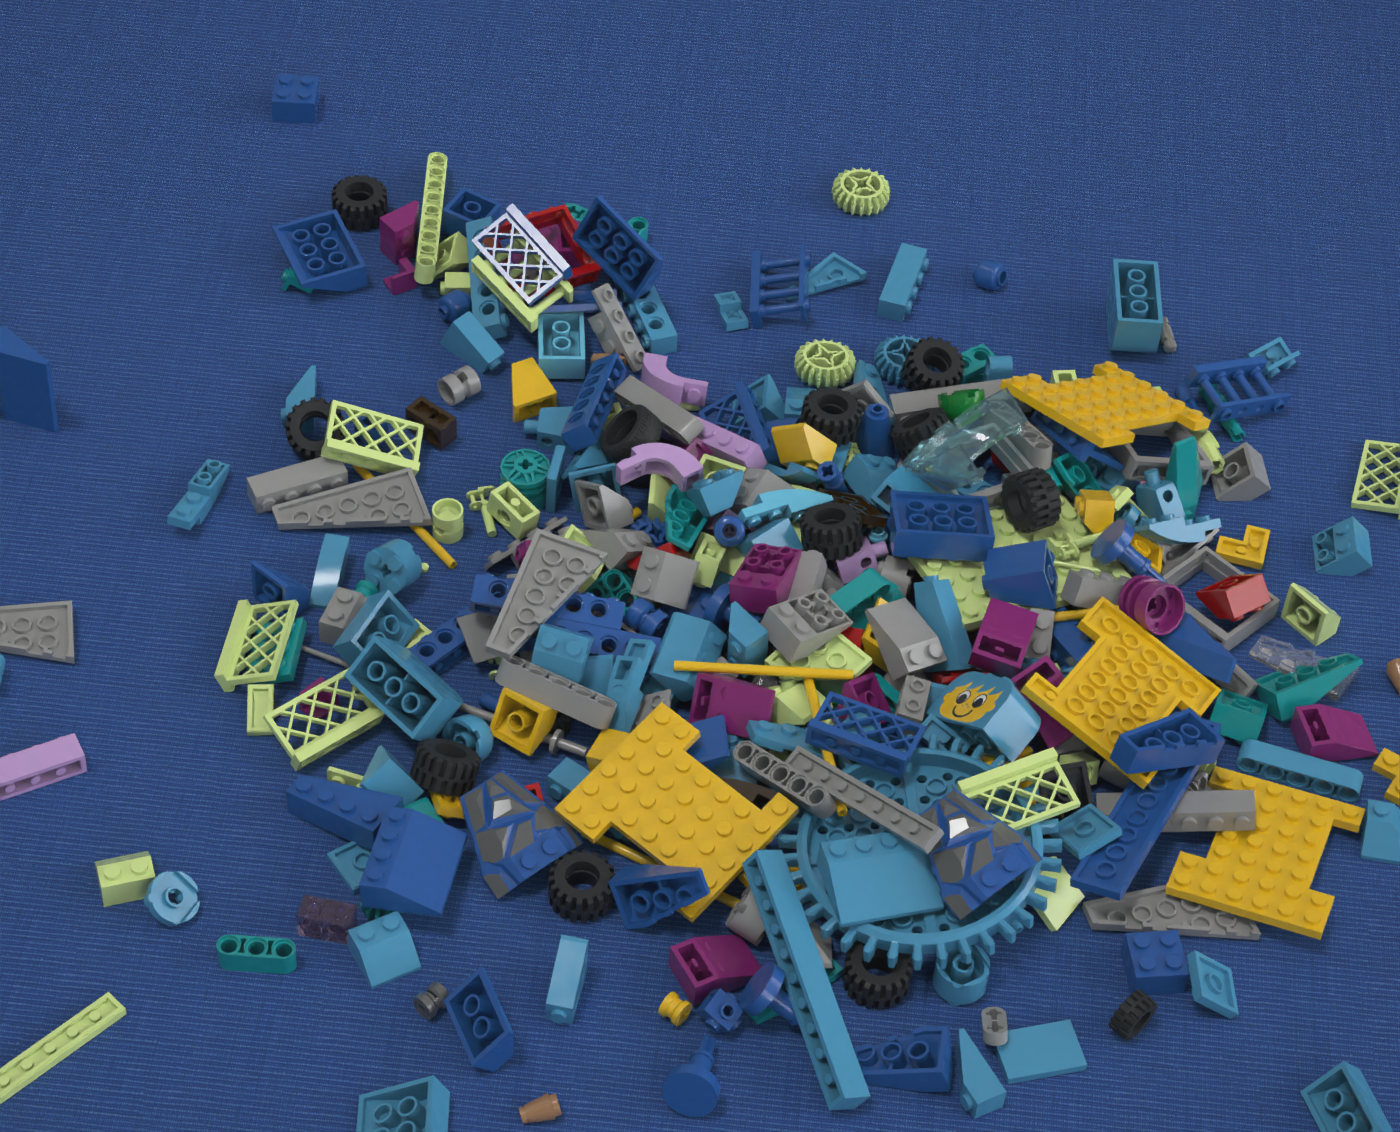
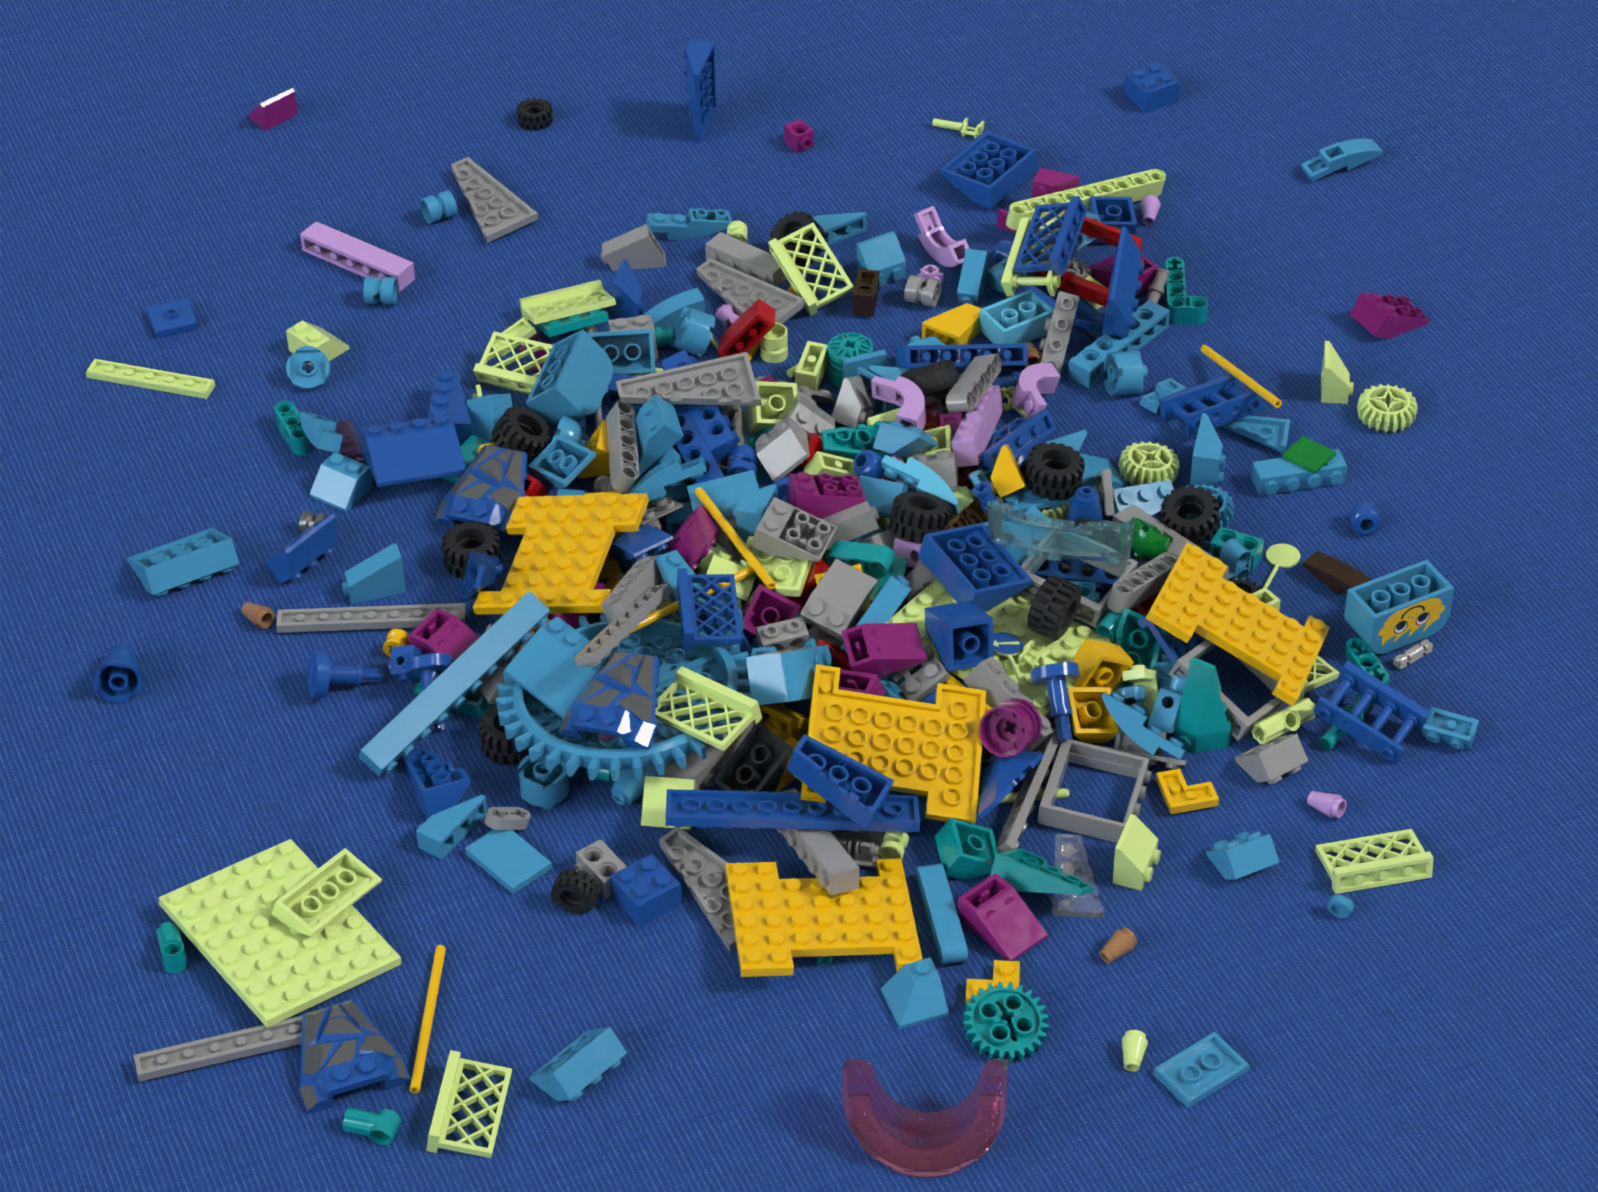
camera: 65 degrees right, 5 degrees down
(91, 778) = (380, 290): none -> dark azure wheel
(133, 355) = (798, 135): none -> magenta brick
(209, 555) = (637, 247): none -> light grey slope
(224, 242) = (962, 127): none -> yellowish green piece
(246, 468) = (738, 230): none -> yellowish green wheel
(307, 927) = (321, 431): none -> dark azure slope
(360, 202) = (1071, 158): black tyre -> none
(378, 536) = (726, 315): none -> lavender connector
(396, 388) = (884, 255): none -> dark azure slope
(402, 343) = (937, 241): none -> lavender arch
(434, 526) = (747, 329): none -> red brick
(438, 369) = (931, 272): none -> lavender gear
(467, 182) = (1149, 207): none -> lavender cone
(509, 46) = (1339, 155): none -> dark azure slope
(529, 749) = (560, 462): none -> dark azure slope
(615, 1016) = (361, 617): none -> light grey plate
(695, 315) = (1124, 373): none -> dark azure brick
(741, 129) = (1387, 315): none -> magenta slope
(769, 247) = (1233, 370): none -> yellow piece
(800, 200) = (1334, 378): none -> yellowish green slope
(848, 321) = (1207, 456): none -> dark azure slope
(898, 262) = (1309, 454): none -> green piece
(996, 345) = (1281, 557): none -> yellowish green piece
(1053, 324) = (1334, 573): none -> dark brown slope
(1086, 831) = (727, 782): dark azure tile -> none
(1104, 980) = (600, 863): none -> light grey brick
(1153, 359) = (1352, 650): none -> teal beam
(1212, 984) = (646, 930): dark azure plate -> none
(1235, 596) = (1091, 790): red slope -> none
(1312, 470) = (1329, 804): none -> lavender cone

